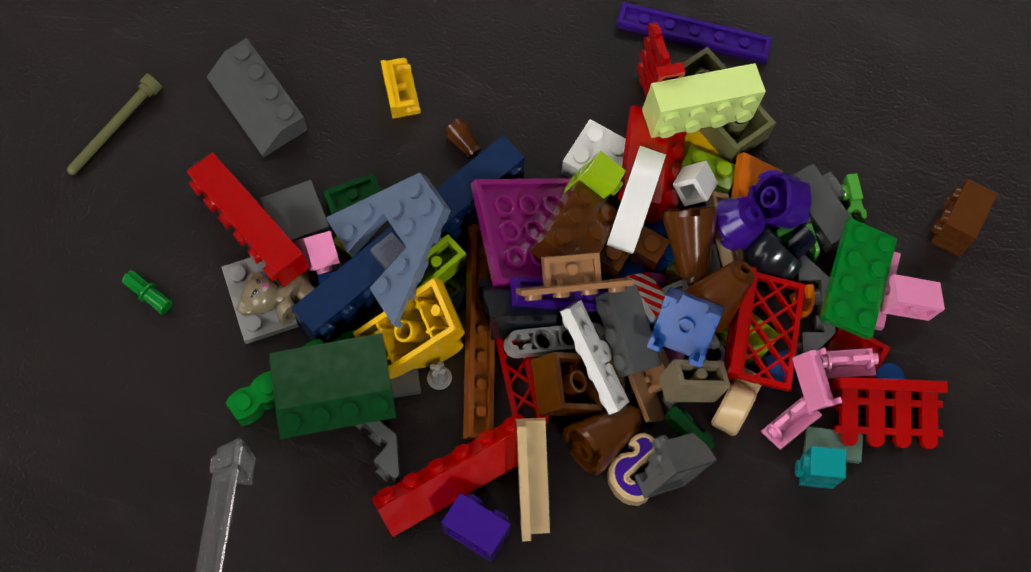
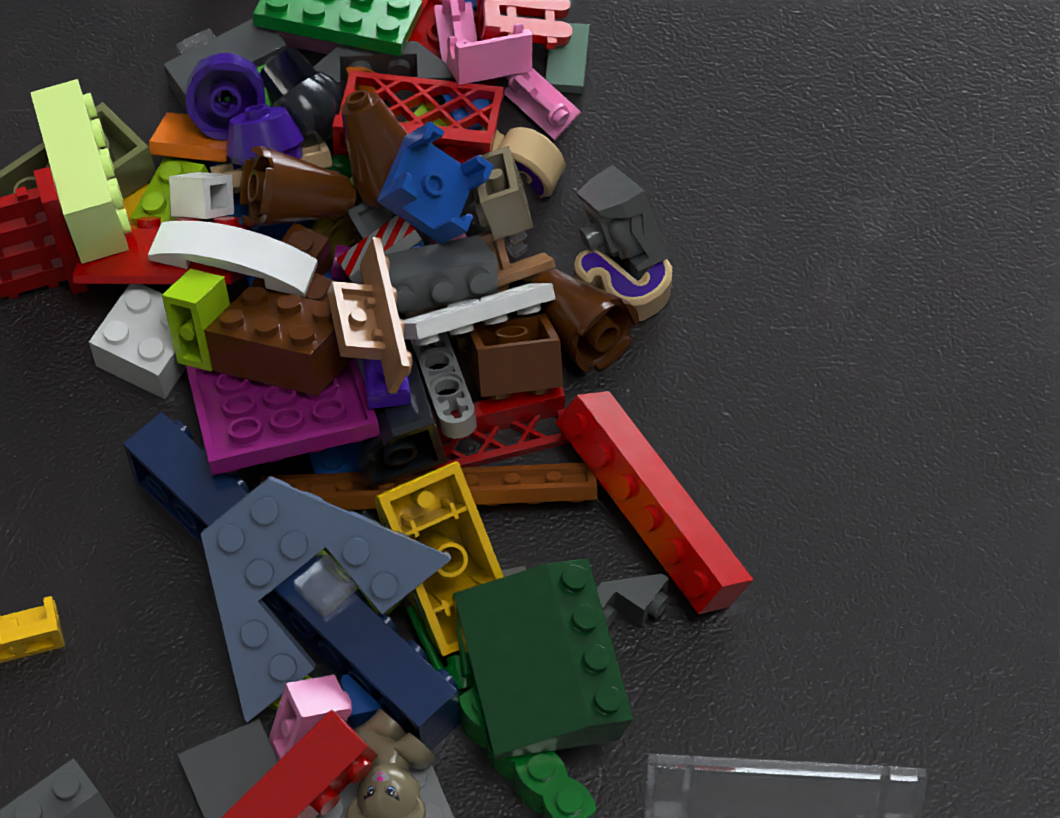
camera: 90 degrees left, 10 degrees down
(351, 193) = (206, 687): dark green plate -> none
(439, 376) = (503, 541): light grey piece -> none
(462, 136) = (105, 532): reddish brown cone -> none
(476, 526) = (729, 464): dark purple brick -> none
(532, 477) = (652, 397): tan fence -> none
(682, 423) = (563, 218): dark green plate -> none
(821, 467) = (606, 57): teal brick -> none
(853, 196) = (199, 20): bright green plate -> none

